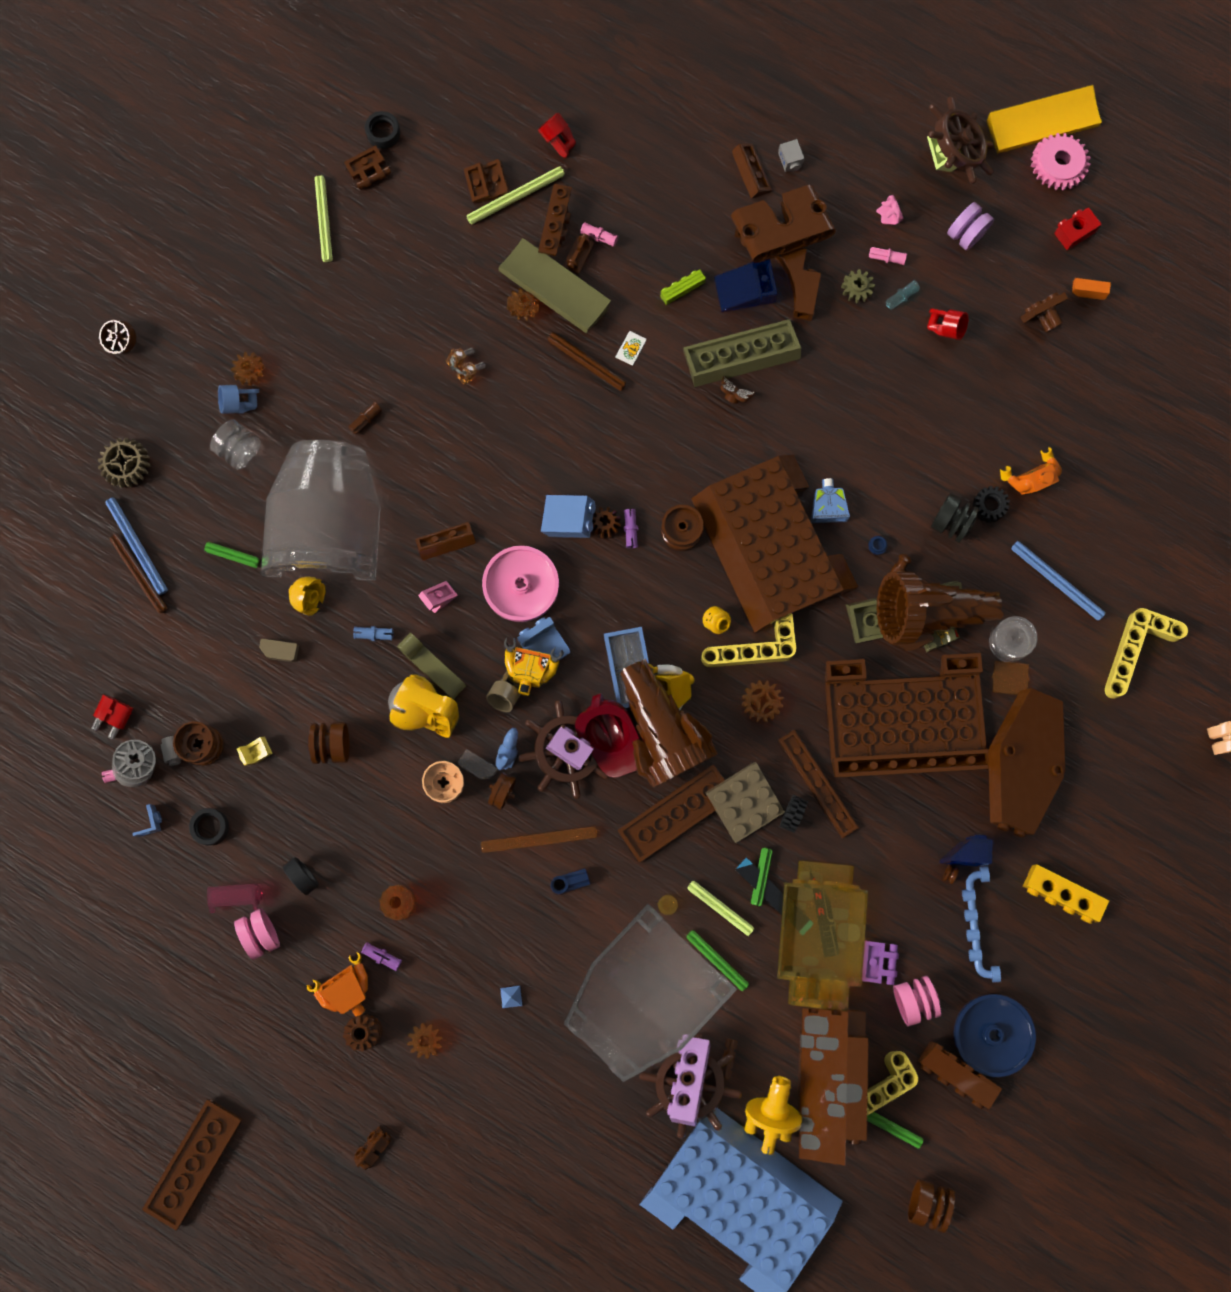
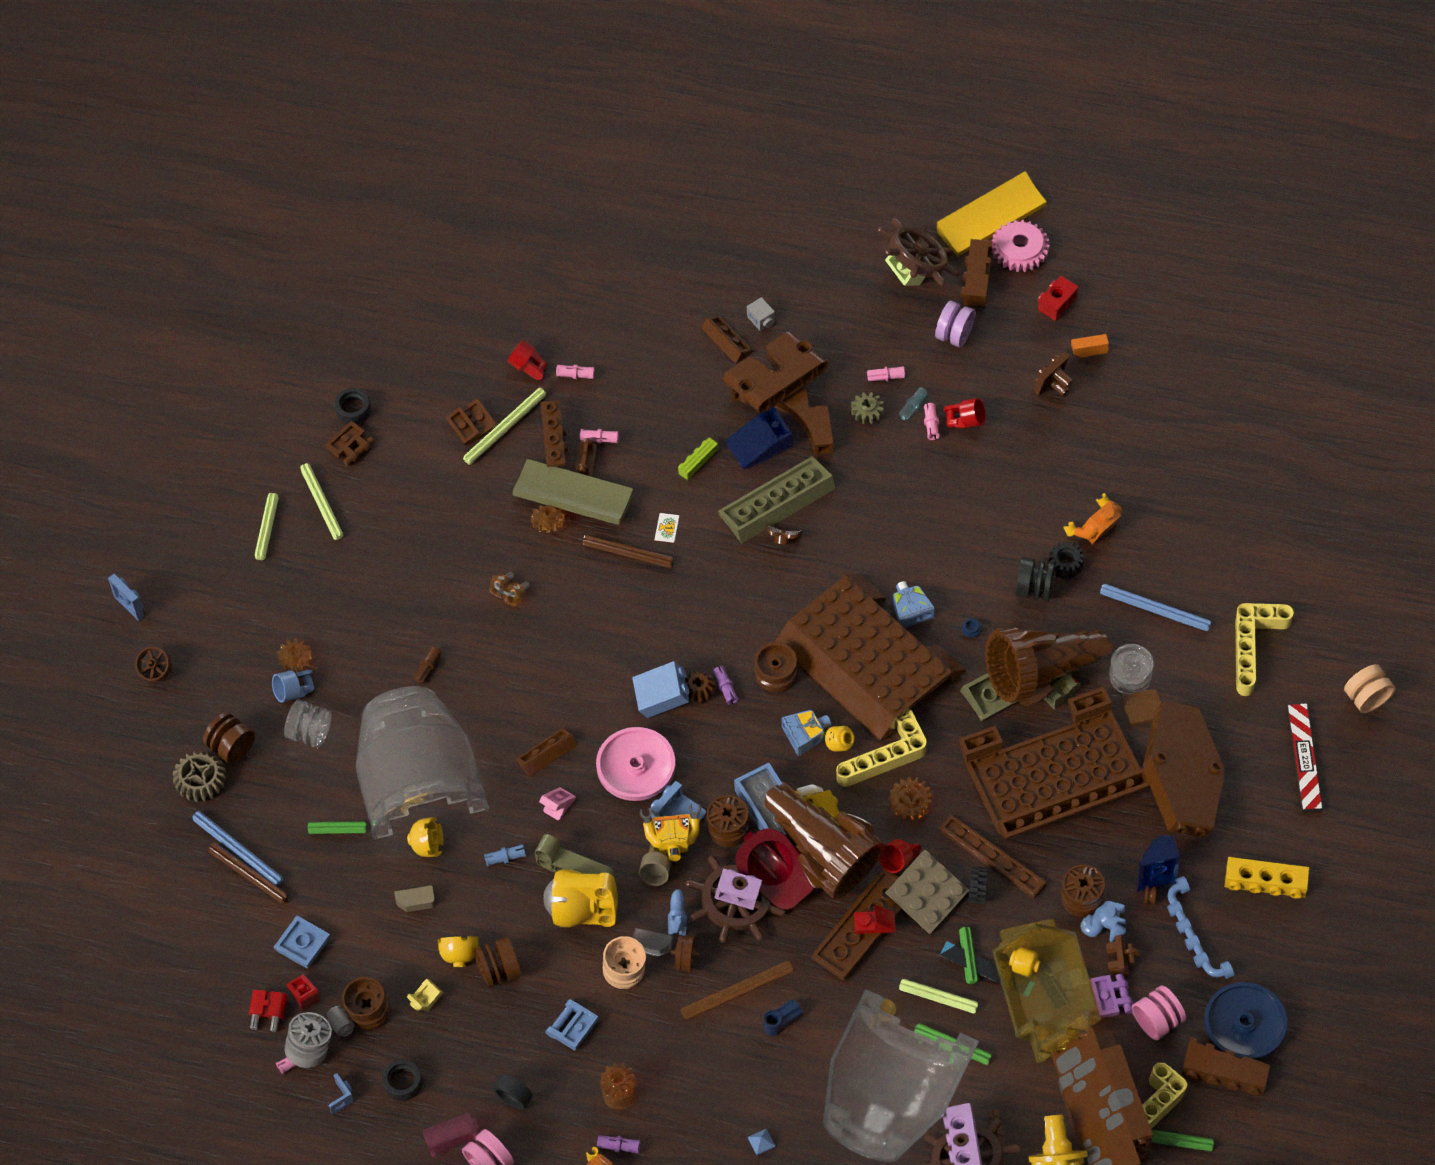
camera: 15 degrees left, 20 degrees down
(113, 260) = (126, 597): none -> medium blue plate
(147, 709) = (303, 991): none -> red slope
(159, 435) = (229, 737): none -> reddish brown wheel
(163, 659) = (302, 942): none -> medium blue plate
(265, 228) = (266, 526): none -> yellowish green axle
(299, 717) = (458, 949): none -> yellow cylinder
(383, 828) = (576, 1029): none -> medium blue plate
(579, 679) = (727, 821): none -> reddish brown wheel
(598, 160) = (575, 371): none -> bright pink pin
(686, 818) = (877, 921): none -> red slope
(688, 599) = (804, 730): none -> medium blue torso
(731, 758) = (898, 855): none -> red piece
(810, 904) = (1024, 961): none -> yellow head
(878, 849) = (1082, 890): none -> reddish brown wheel
(890, 211) = (874, 334): bright pink piece -> none
(900, 882) = (1105, 917): none -> medium blue animal
(903, 918) = (1119, 948): none -> reddish brown hips
(913, 319) = (931, 421): none -> bright pink pin
(1010, 179) = (977, 273): none -> reddish brown wedge
(1143, 781) = (1304, 758): none -> tile

